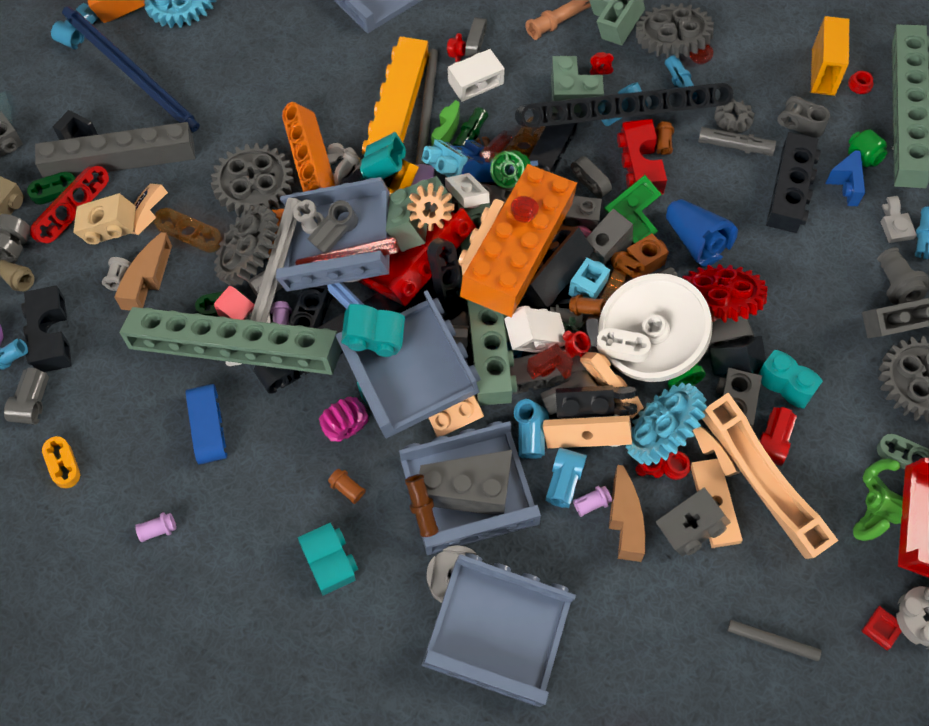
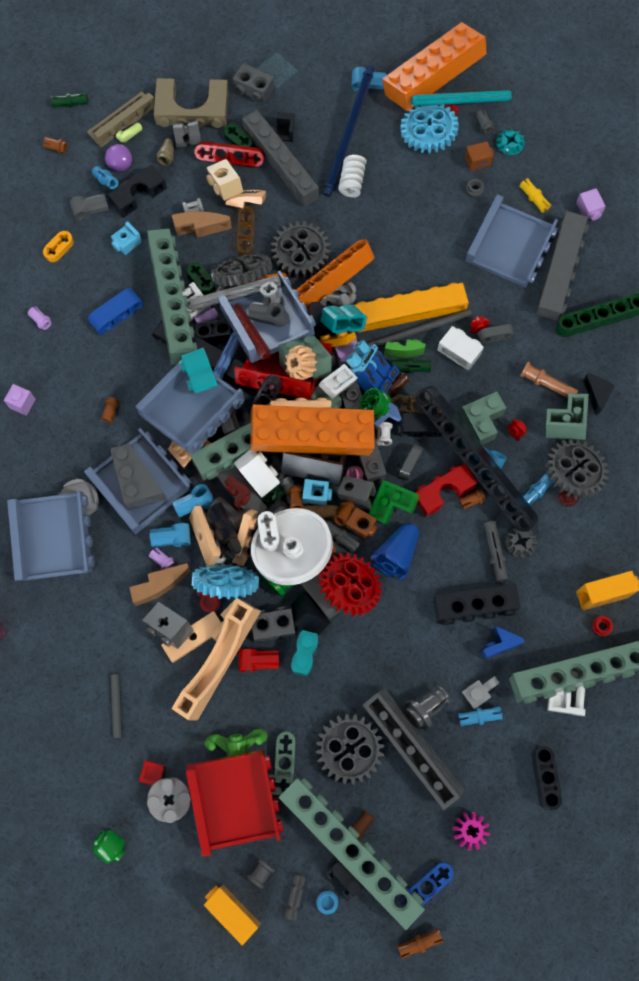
camera: 65 degrees right, 10 degrees up
(108, 369) = (126, 239): none -> medium azure brick
(191, 89) = (352, 175): none -> white piece
(233, 304) = (197, 284): coral slope -> none
(268, 598) = (19, 399): none -> lavender brick
(327, 558) = (58, 420): teal brick -> none
(343, 419) = (144, 383): dark pink gear -> none
(421, 505) = (103, 455): reddish brown pin -> none
(495, 146) = (390, 385): clear red axle -> none
(524, 209) = (324, 420): clear red plate -> none
(576, 343) = (255, 502): red plate -> none
(805, 118) = (543, 588): dark grey piece -> none
(870, 146) = (535, 648): green head -> none

